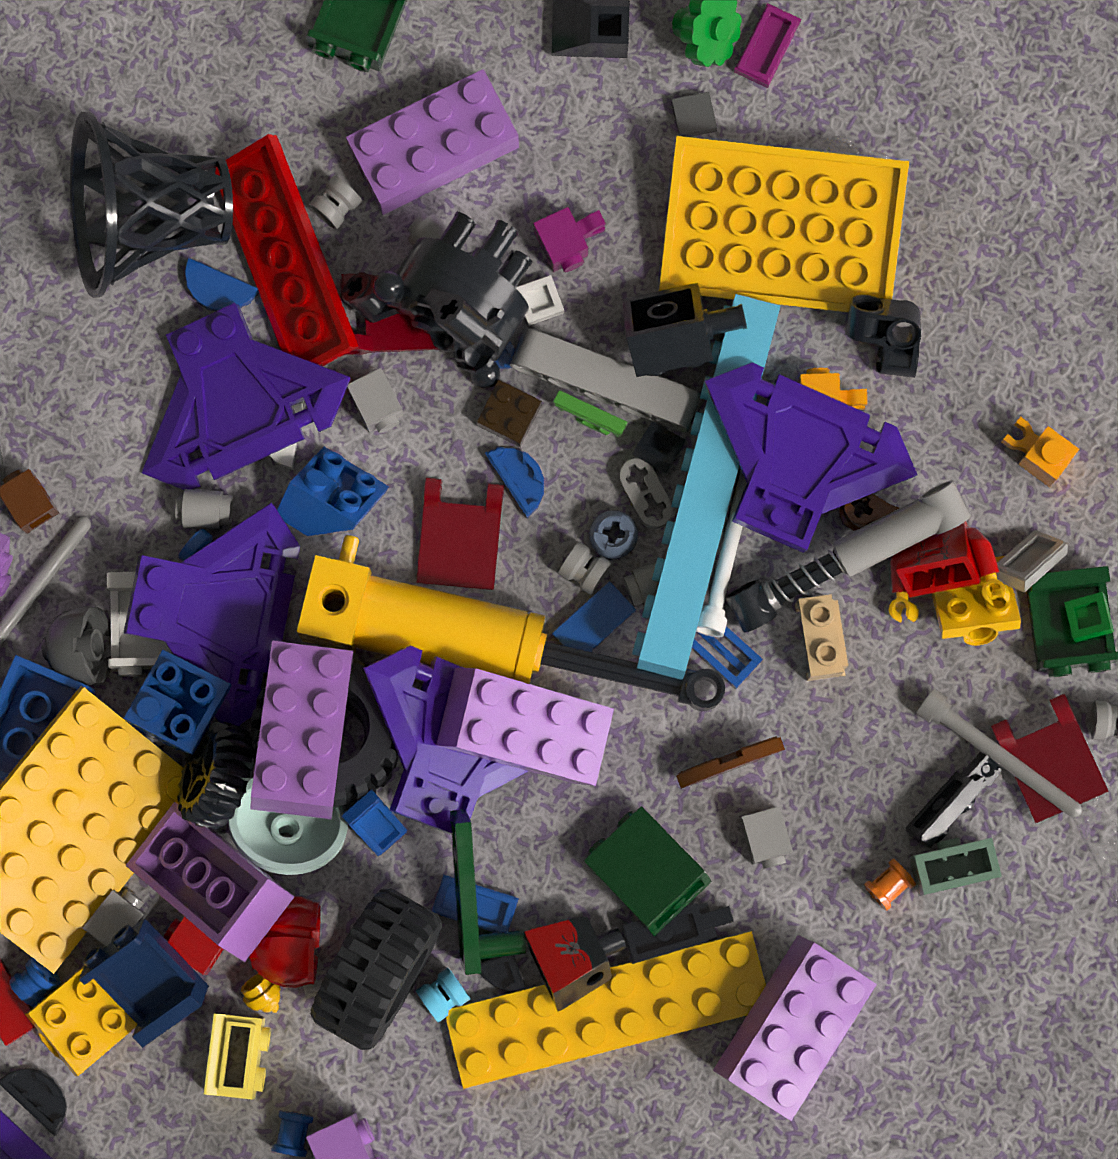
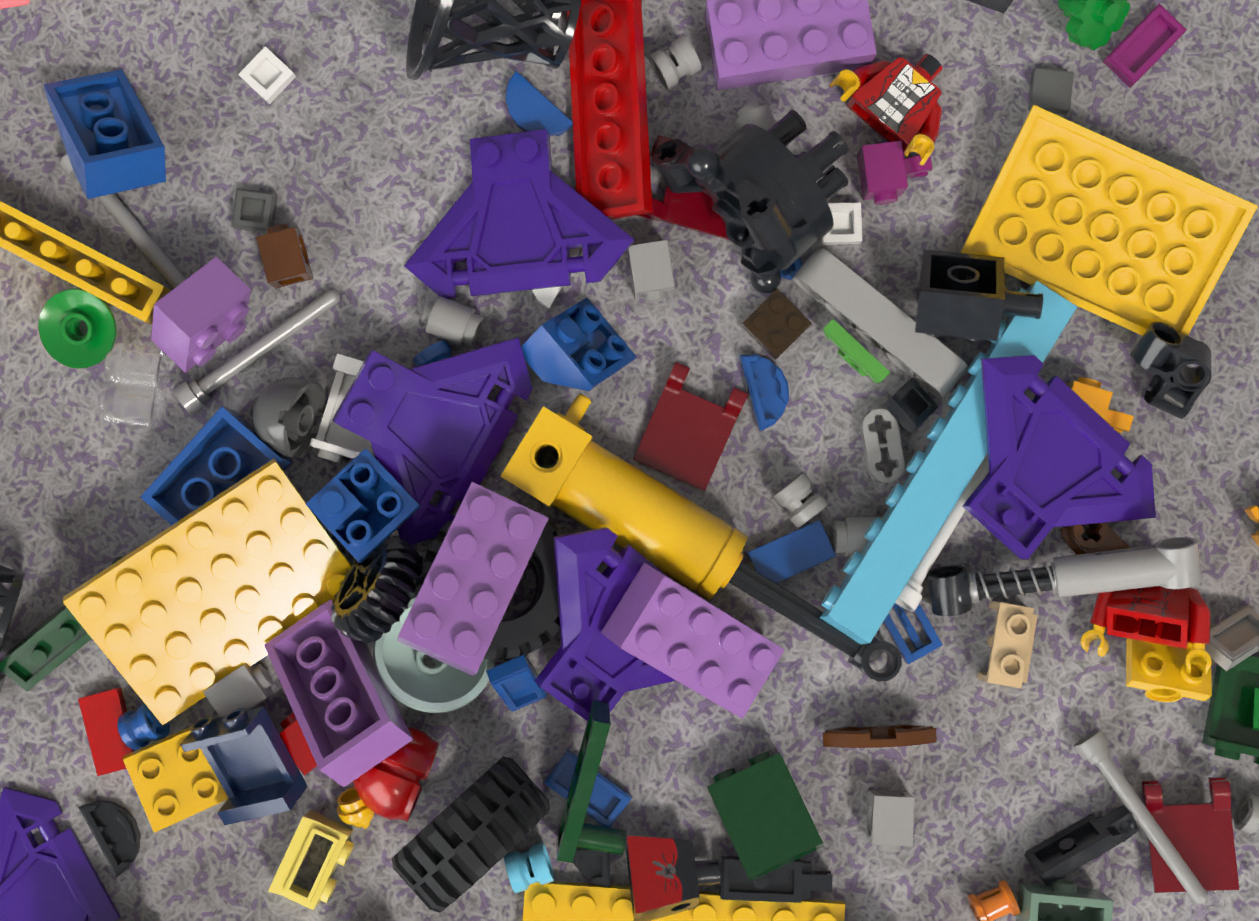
camera: 15 degrees right, 5 degrees up
(553, 171) = (897, 101): none -> torso
(604, 522) = (853, 473): sand blue piece -> none

